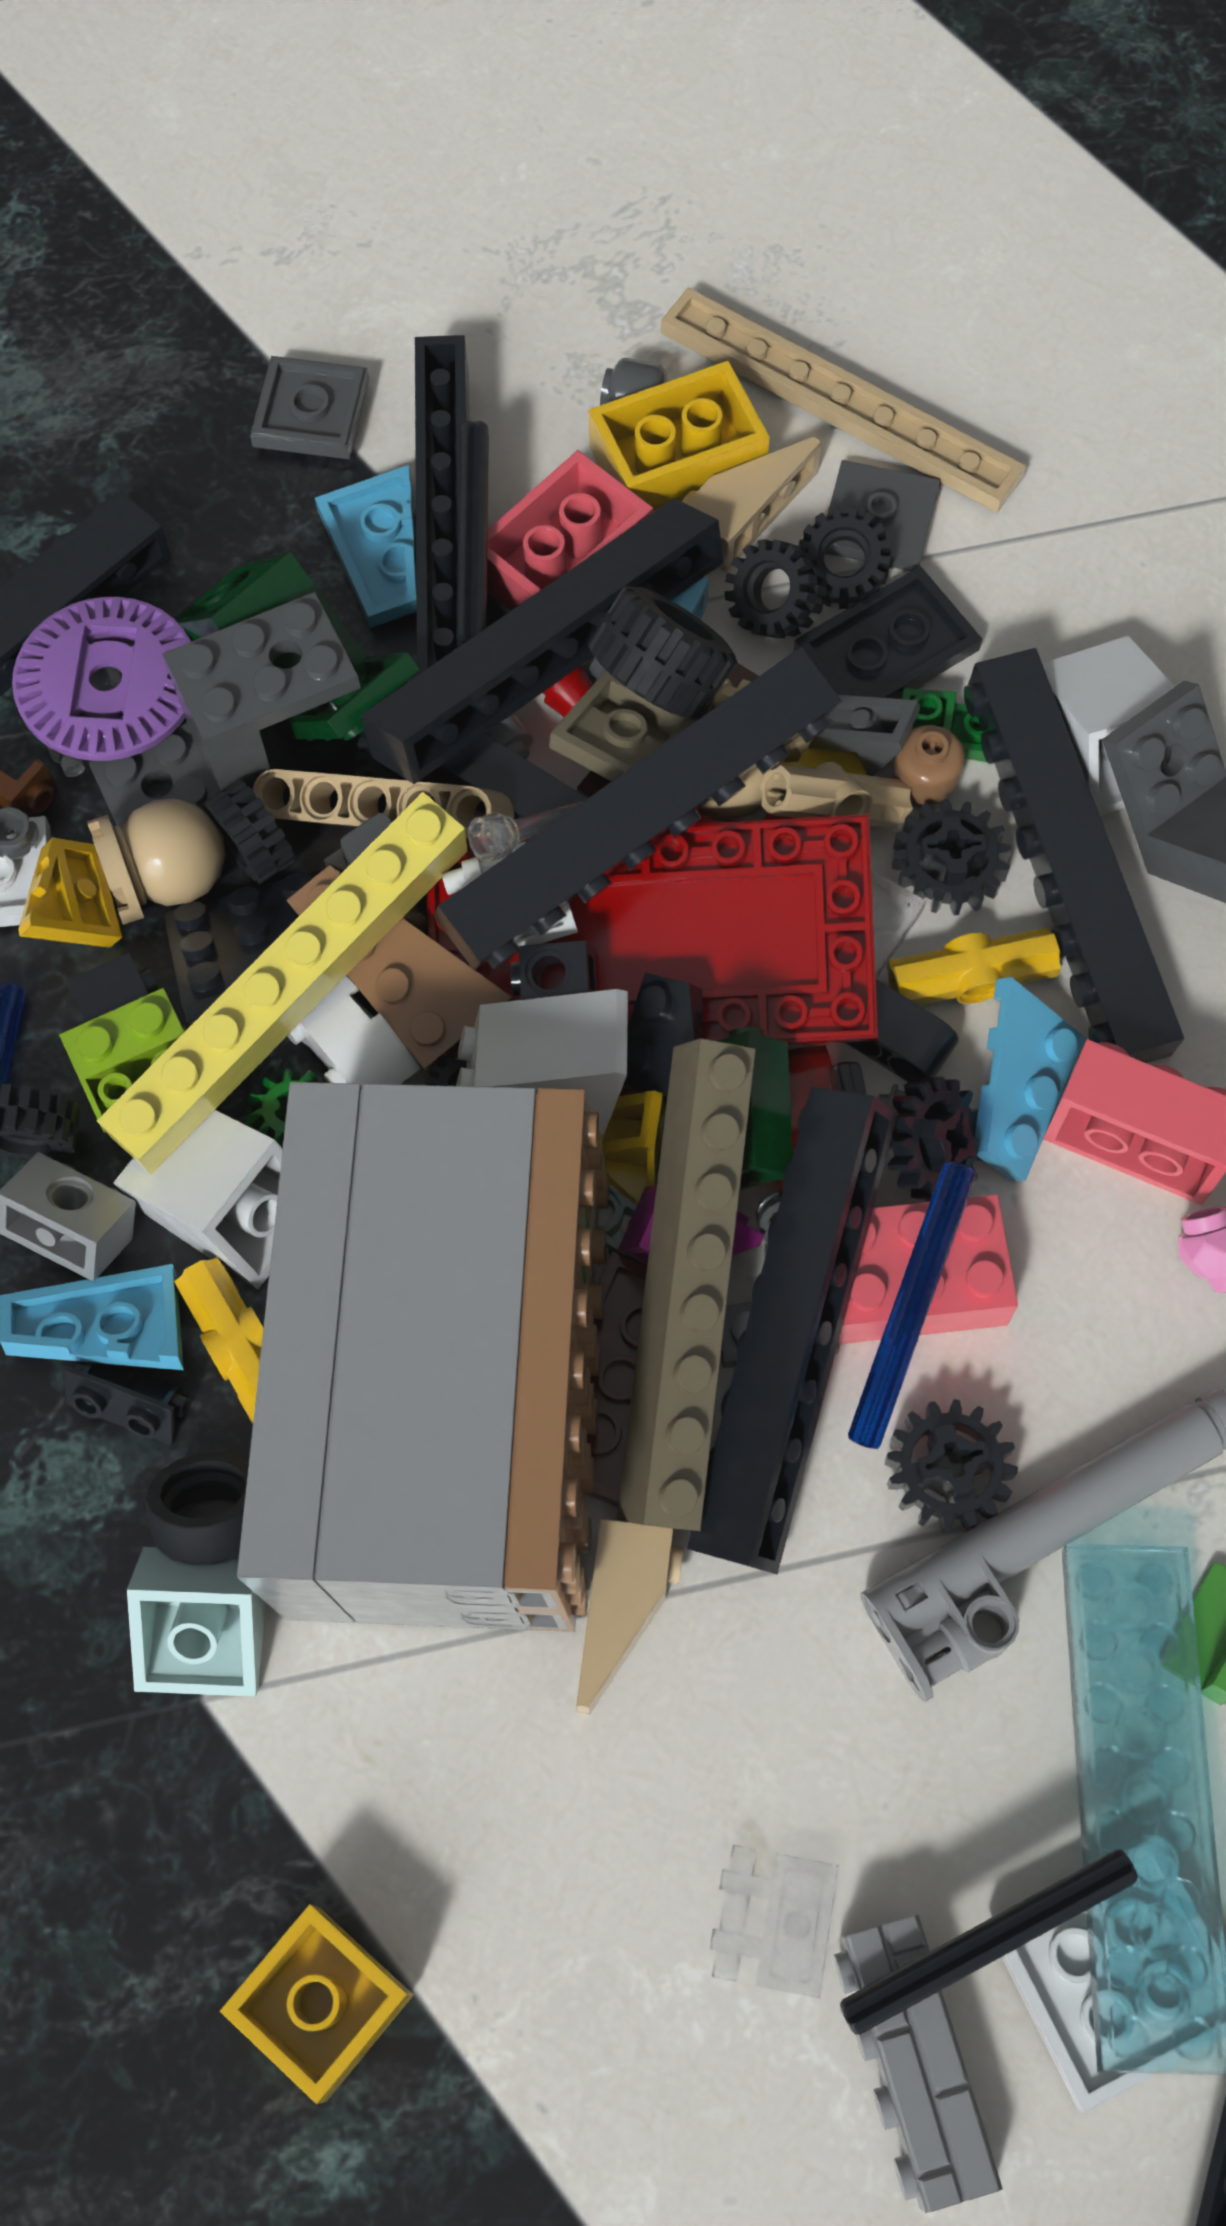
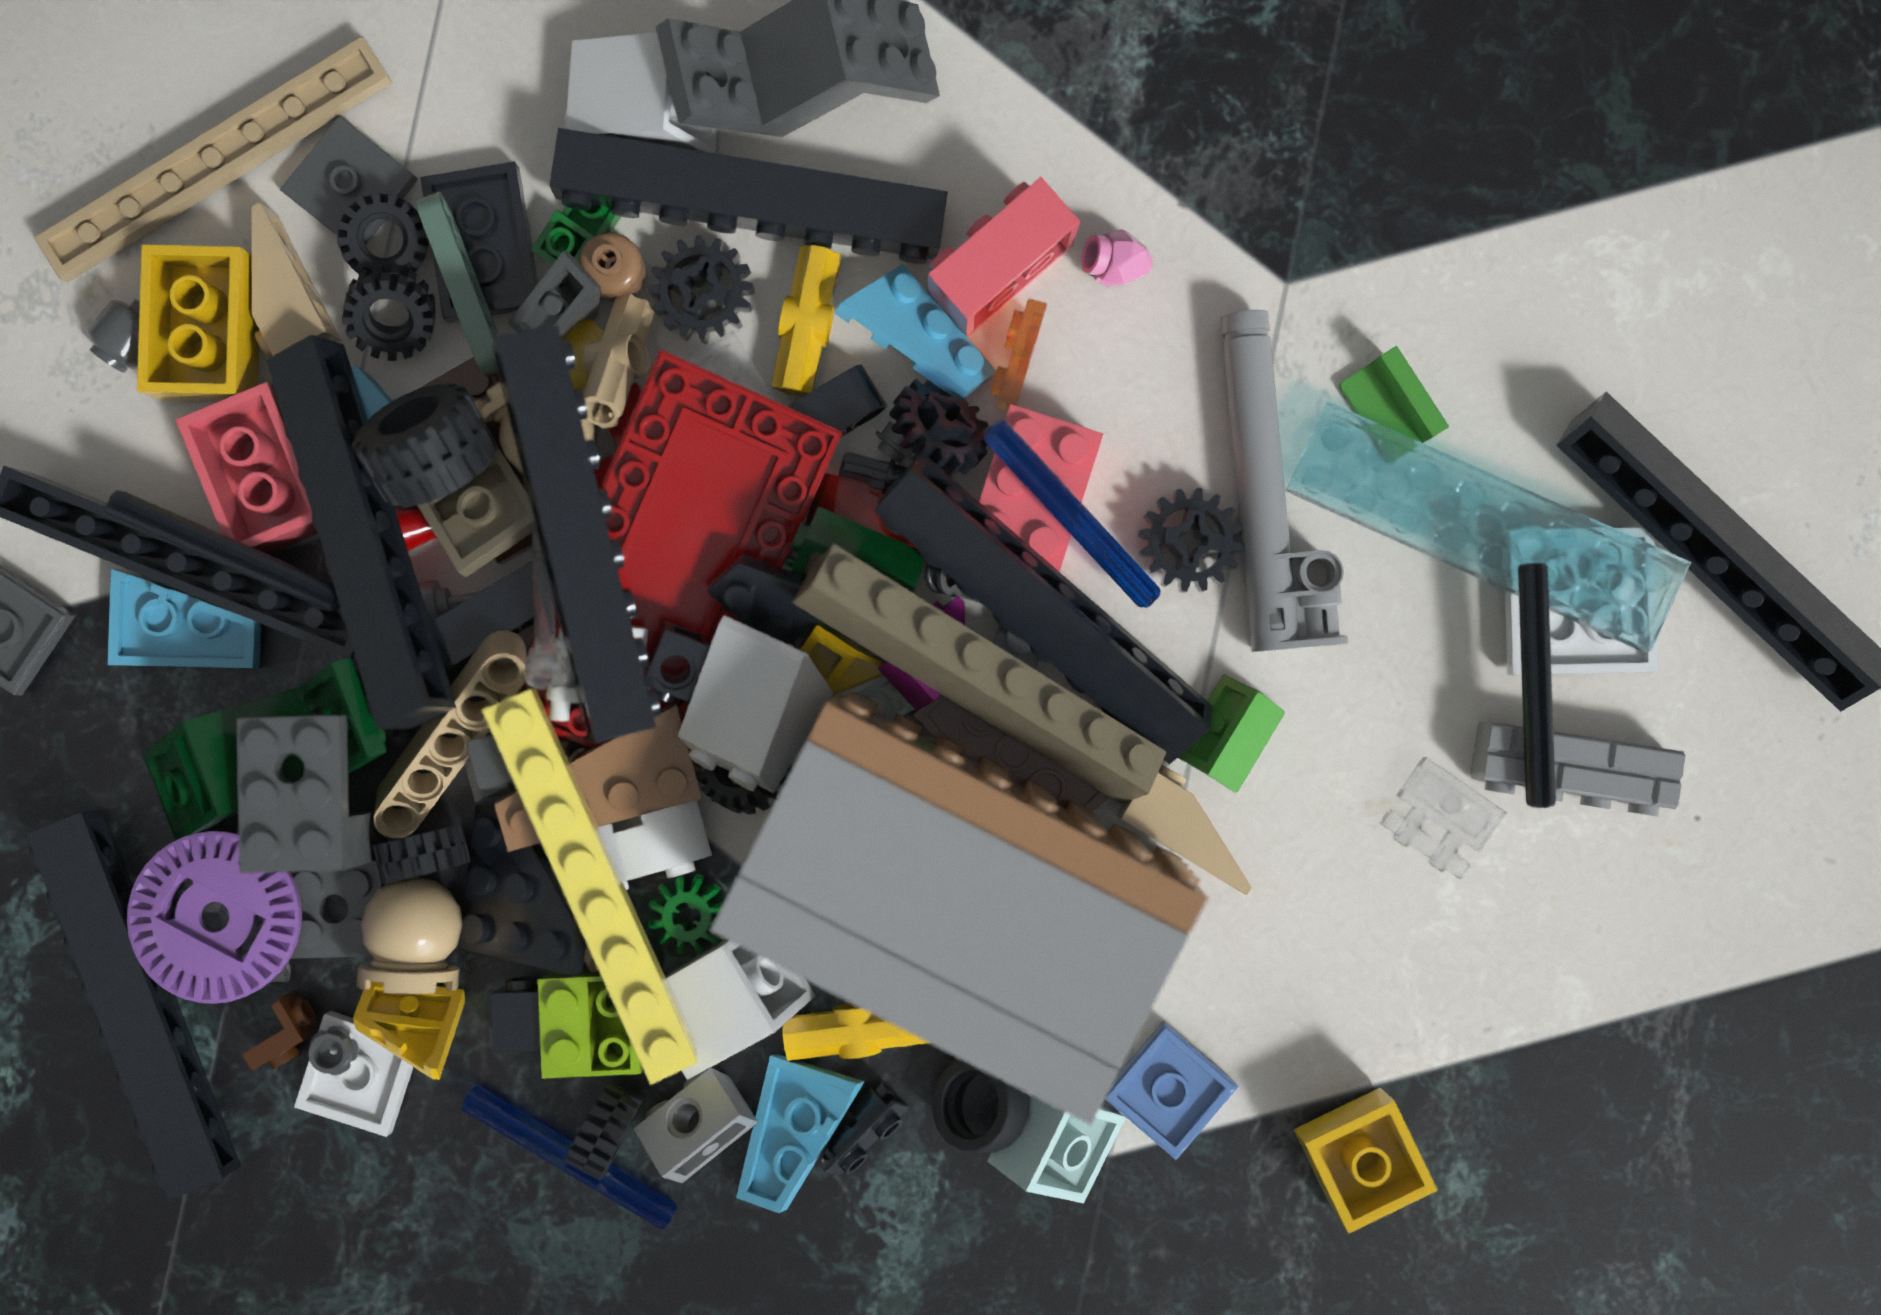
camera: 70 degrees left, 20 degrees up
(307, 1733) = (1170, 1090): none -> medium blue tile
(755, 1616) = (1237, 735): none -> bright green panel
(857, 617) = (460, 279): none -> sand green beam
(1077, 1185) = (1021, 340): none -> clear orange plate

